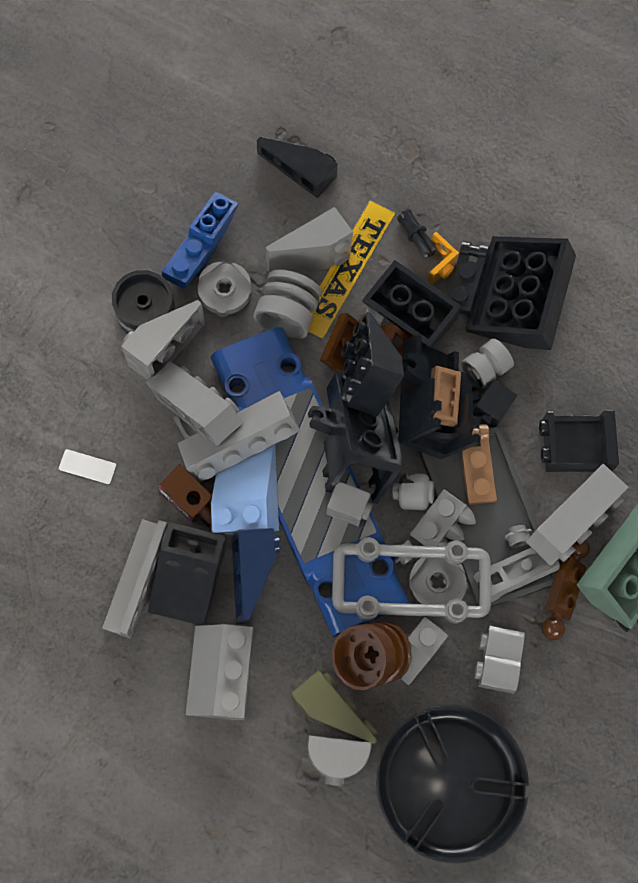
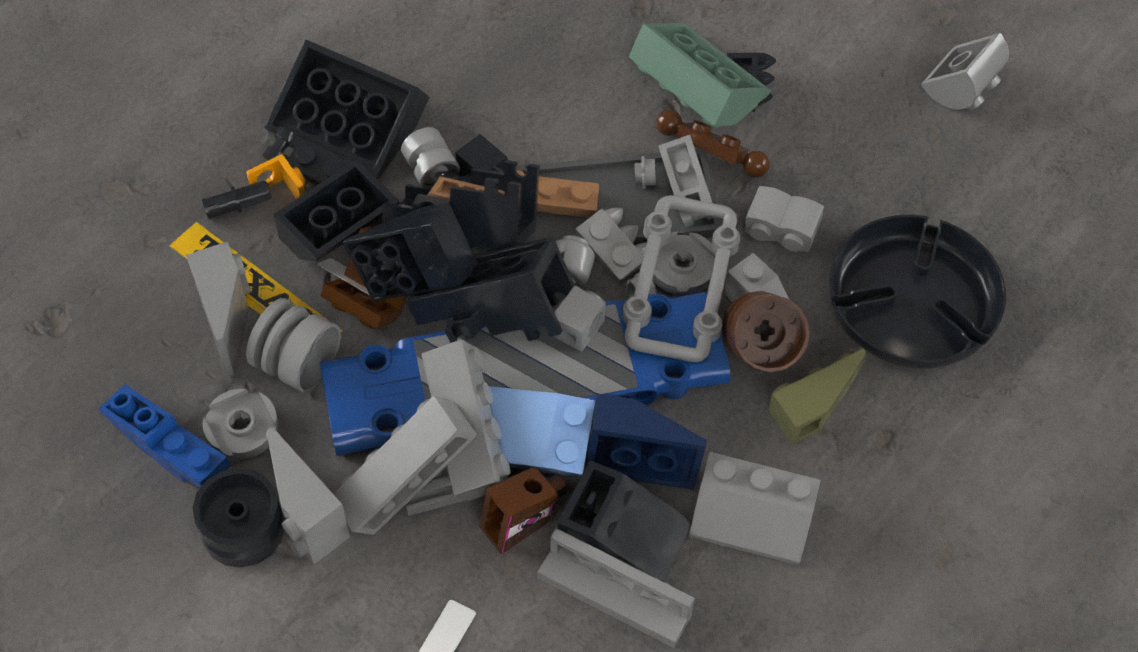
camera: 75 degrees left, 15 degrees down
(300, 163) = (94, 304): black slope -> none
(337, 758) = (881, 392): light grey brick -> none
(577, 514) = (636, 108): light grey brick -> none
(579, 442) = (546, 95): black panel -> none

